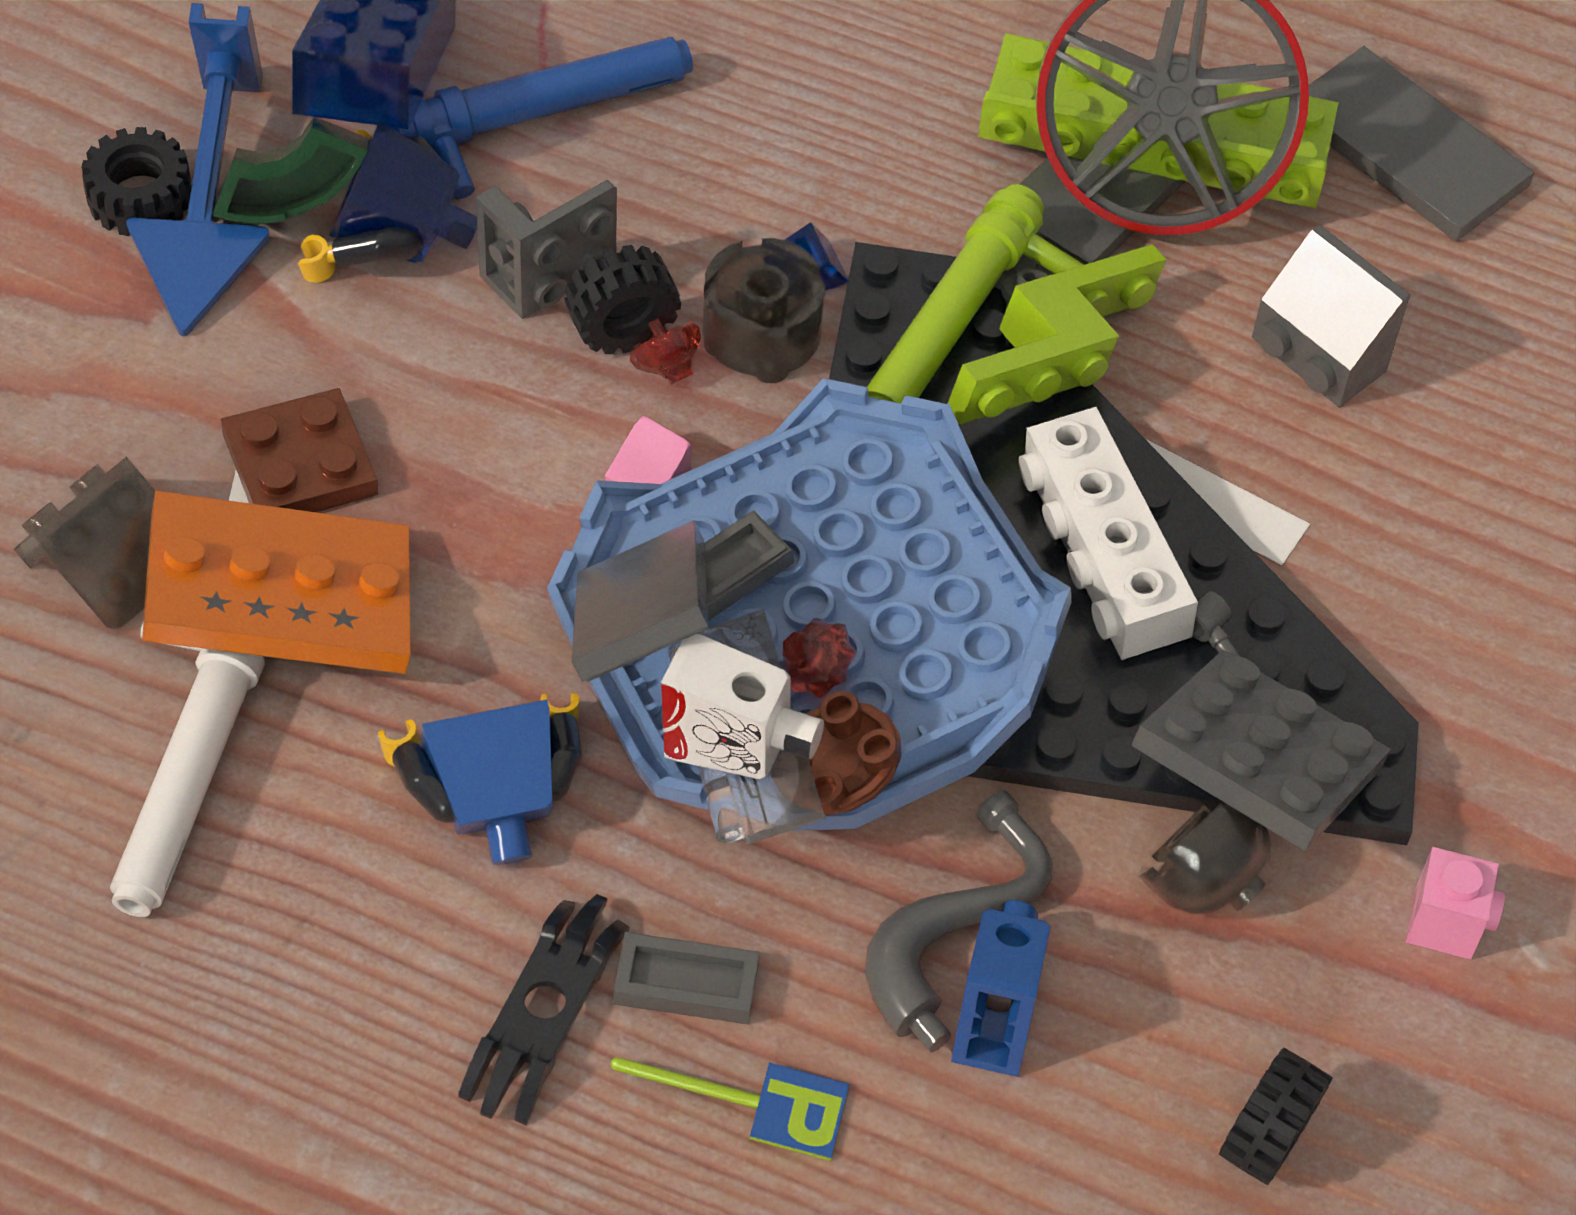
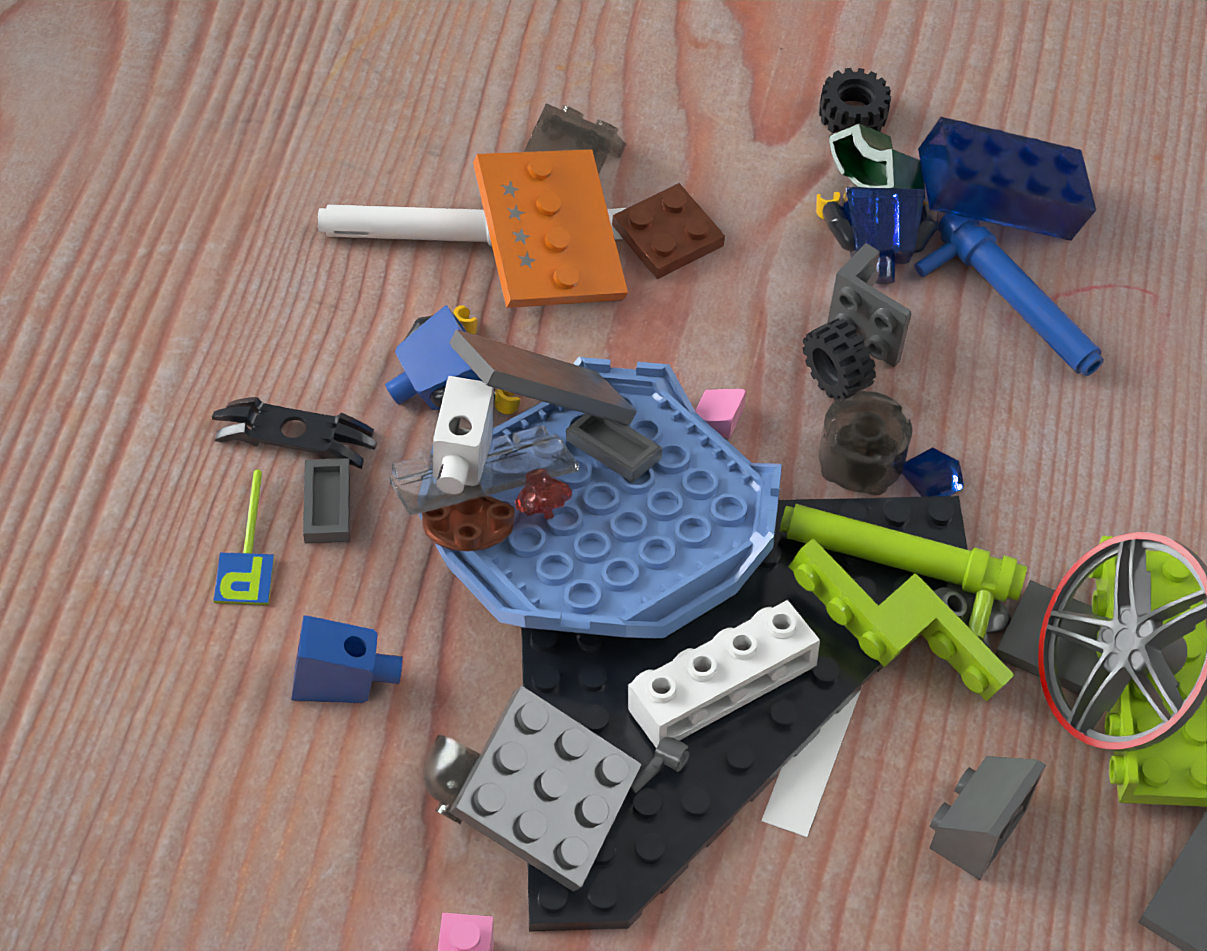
camera: 80 degrees right, 0 degrees up
(195, 257) = (806, 144): blue piece -> none
(668, 352) = (812, 400): clear red piece -> none
(898, 944) = (375, 610): dark grey animal -> none
(1275, 1116) = (261, 839): black tyre -> none

